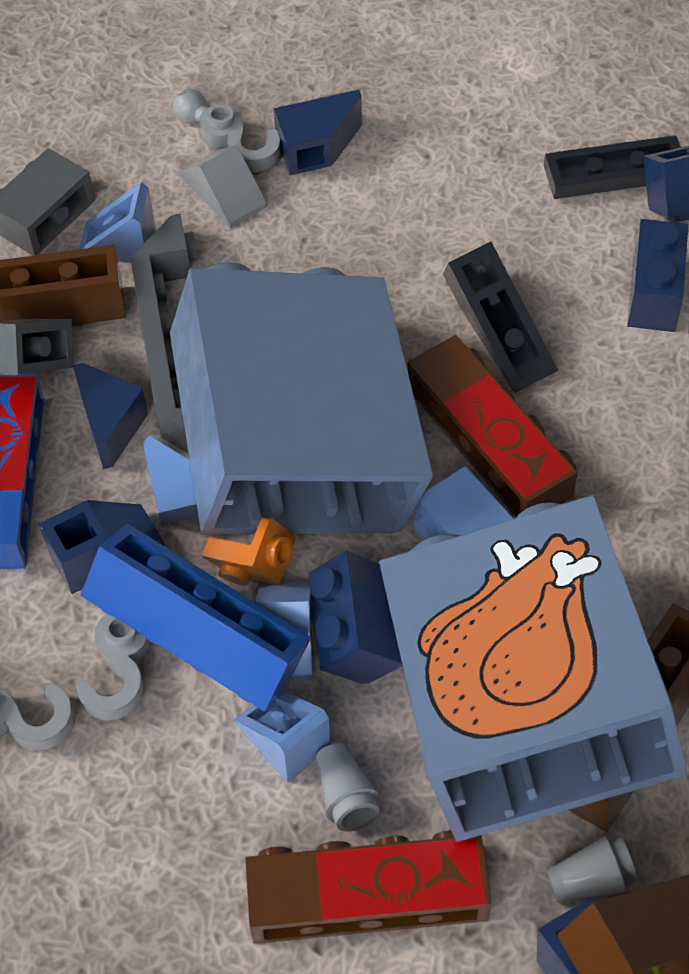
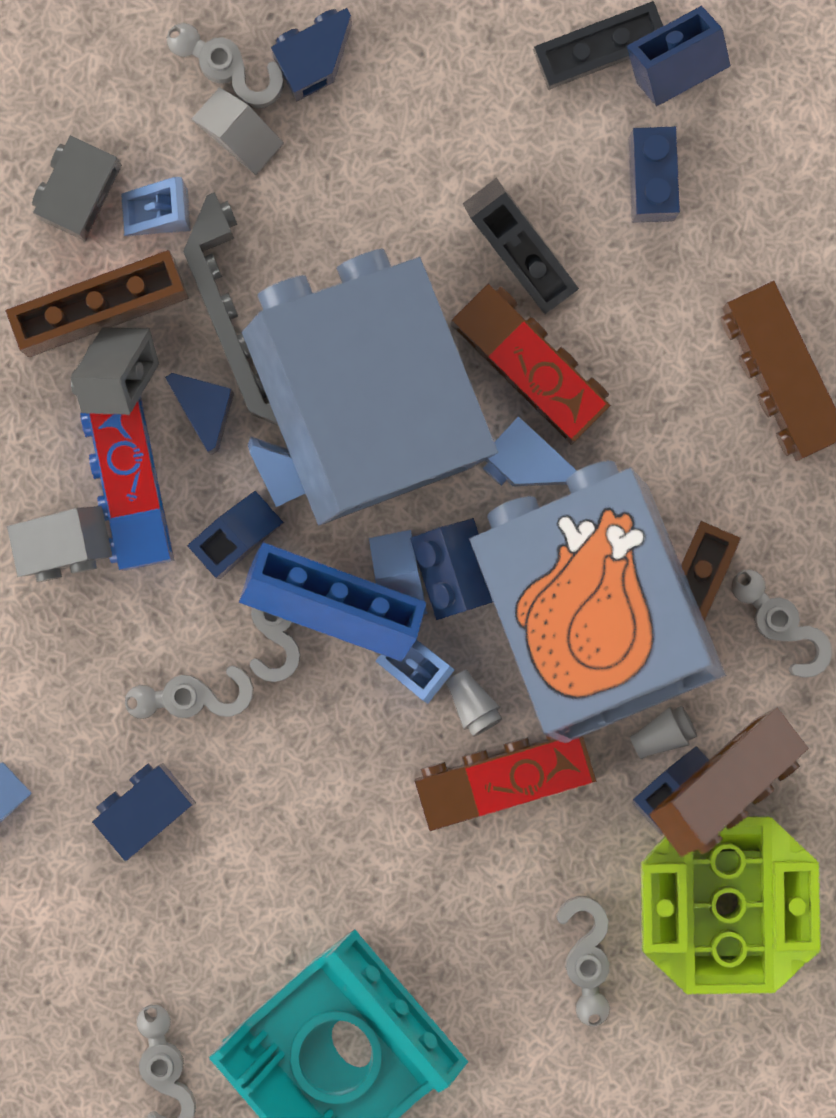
camera: 15 degrees left, 30 degrees up
(260, 561) = (356, 535): orange bracket -> none

